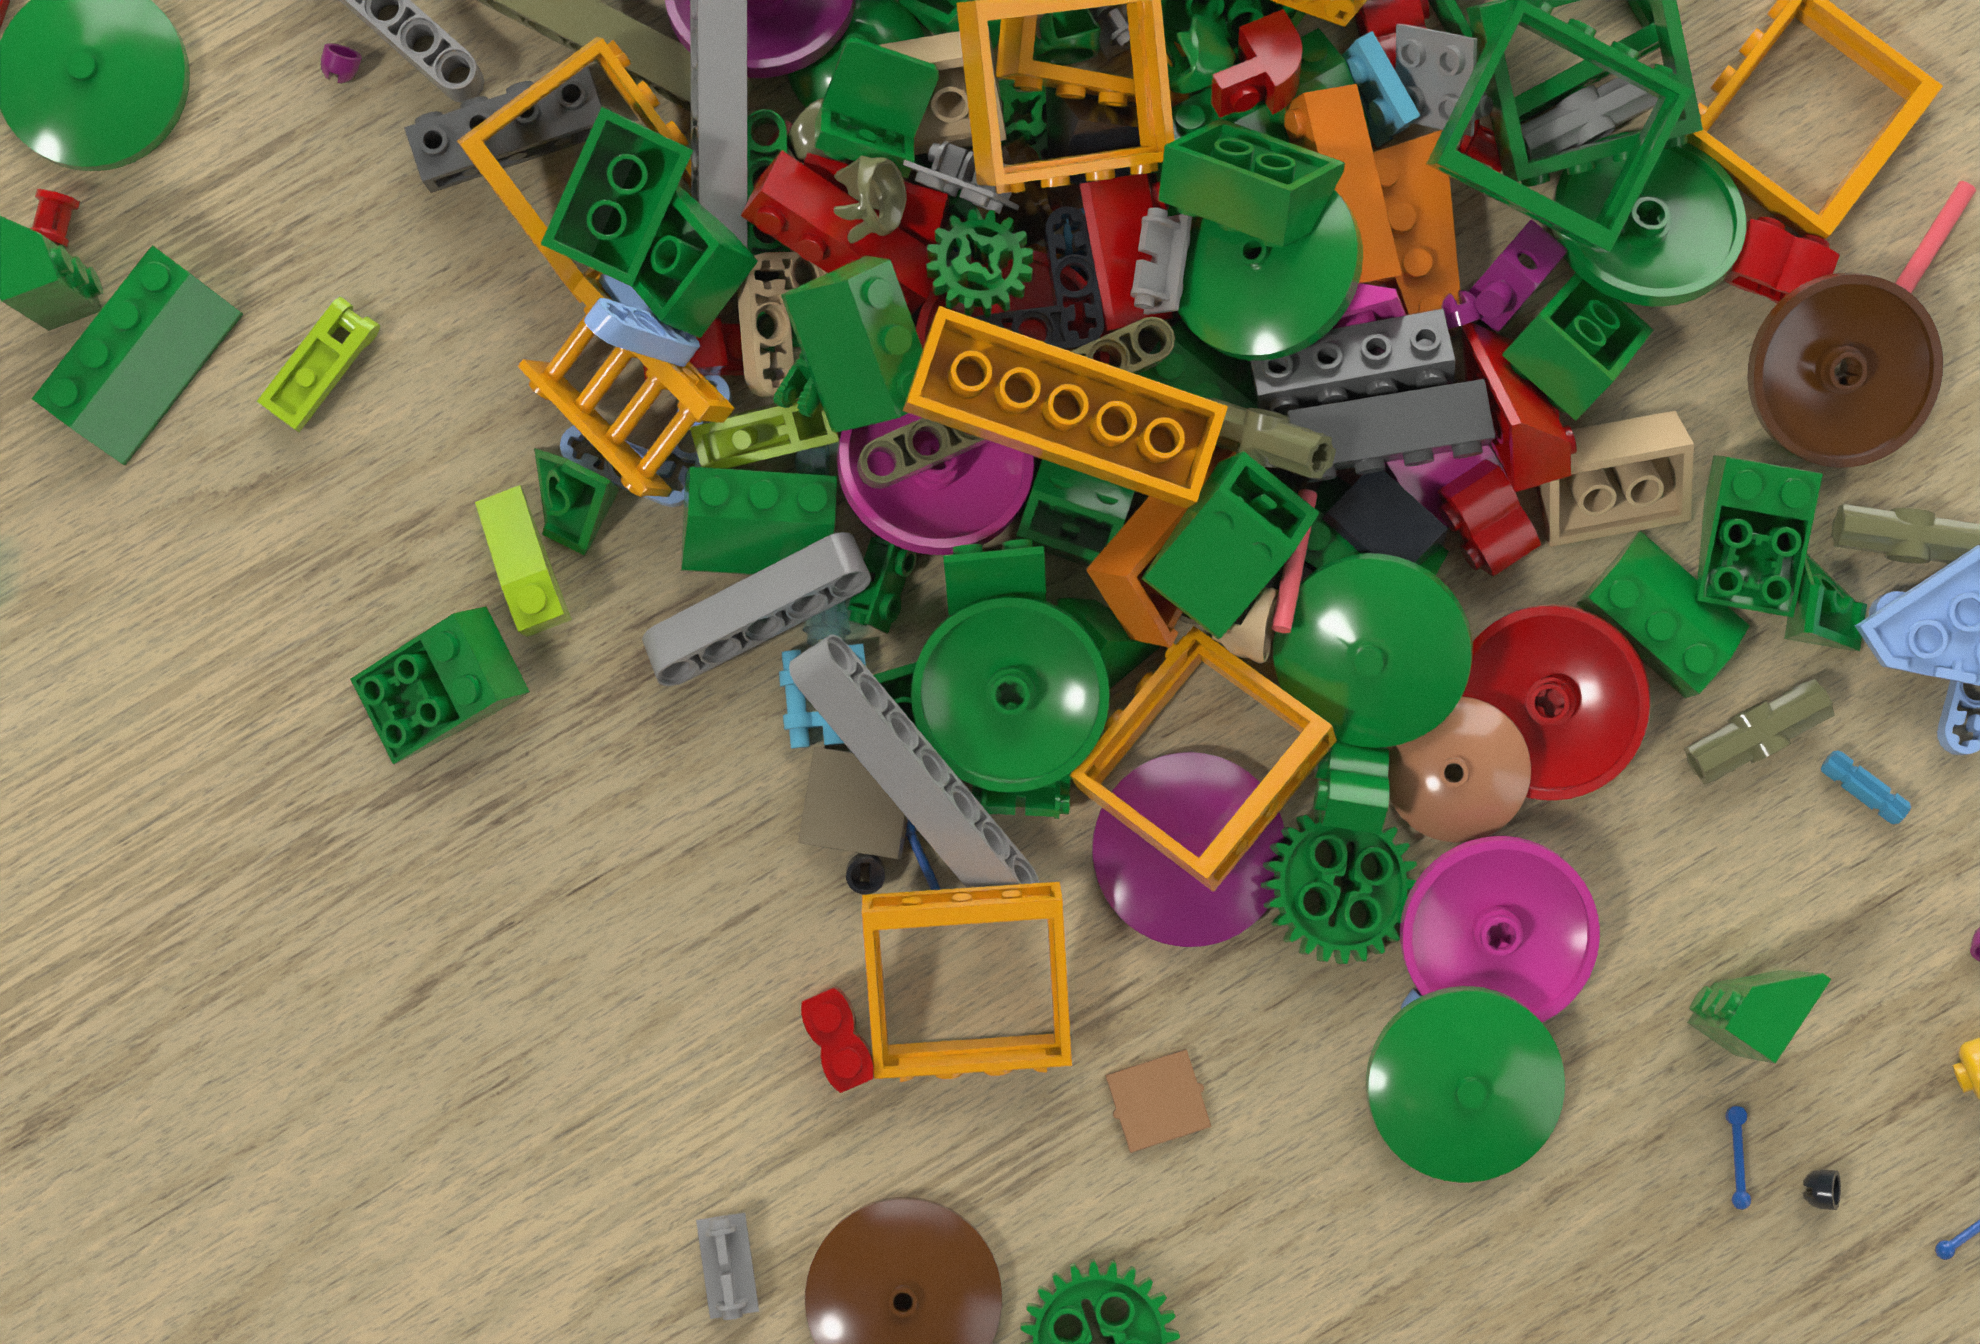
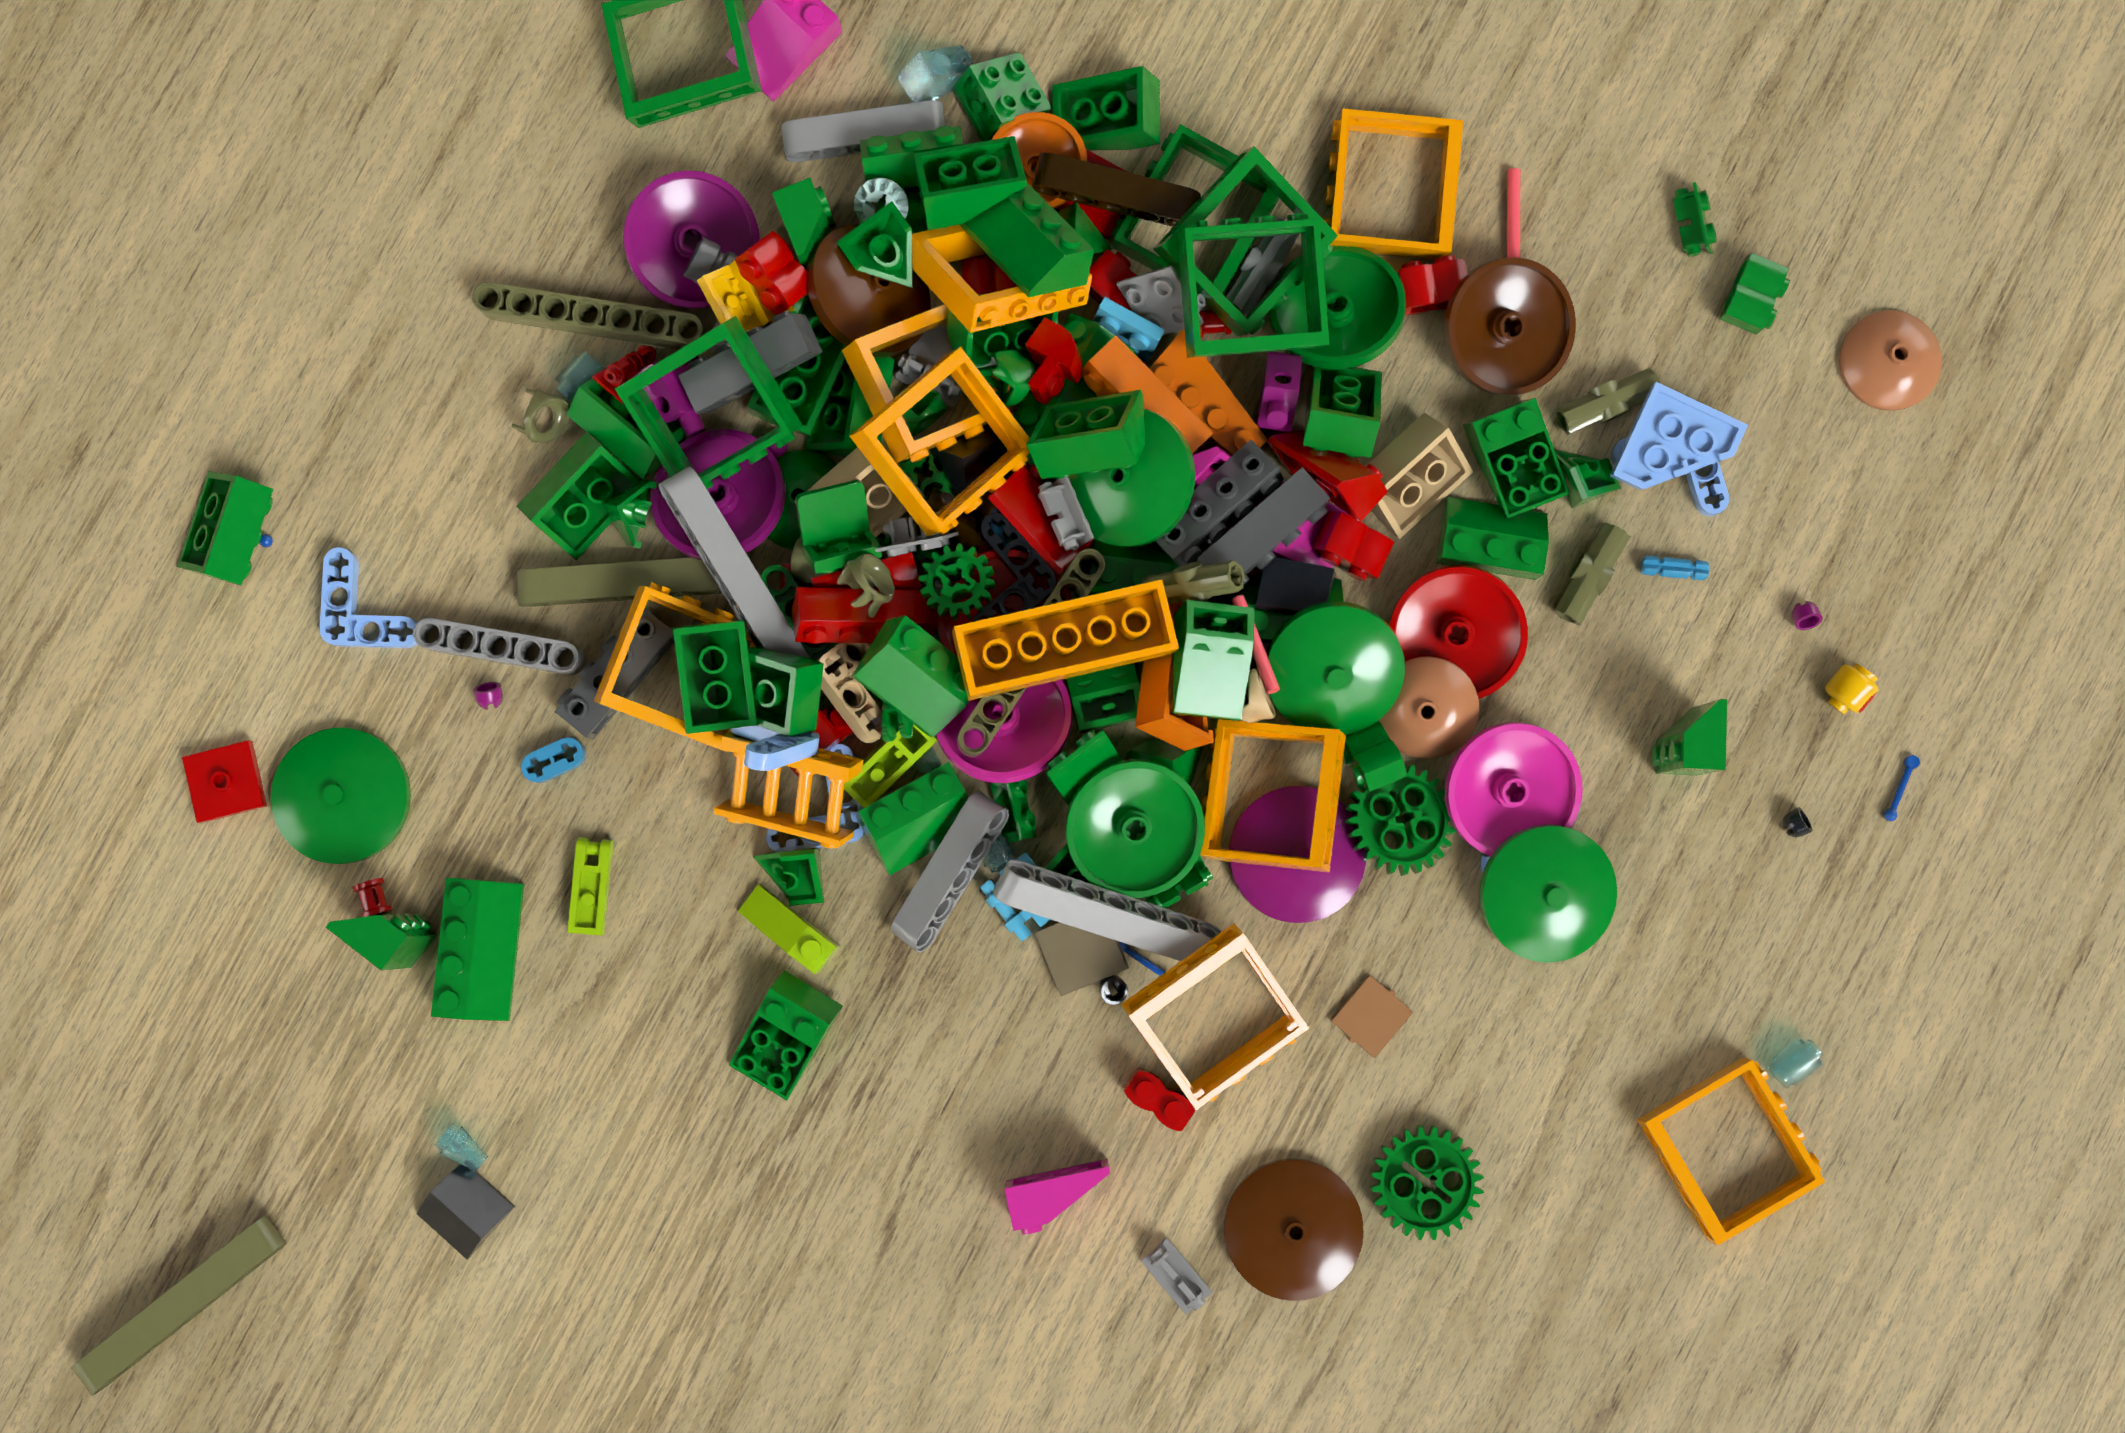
camera: 25 degrees left, 0 degrees up
(367, 198) = (550, 753): none -> dark azure beam
(622, 1067) = (1045, 1195): none -> dark pink slope
(1460, 314) = (1262, 434): magenta hinge -> none
(1736, 1117) = (1720, 811): blue hinge -> none

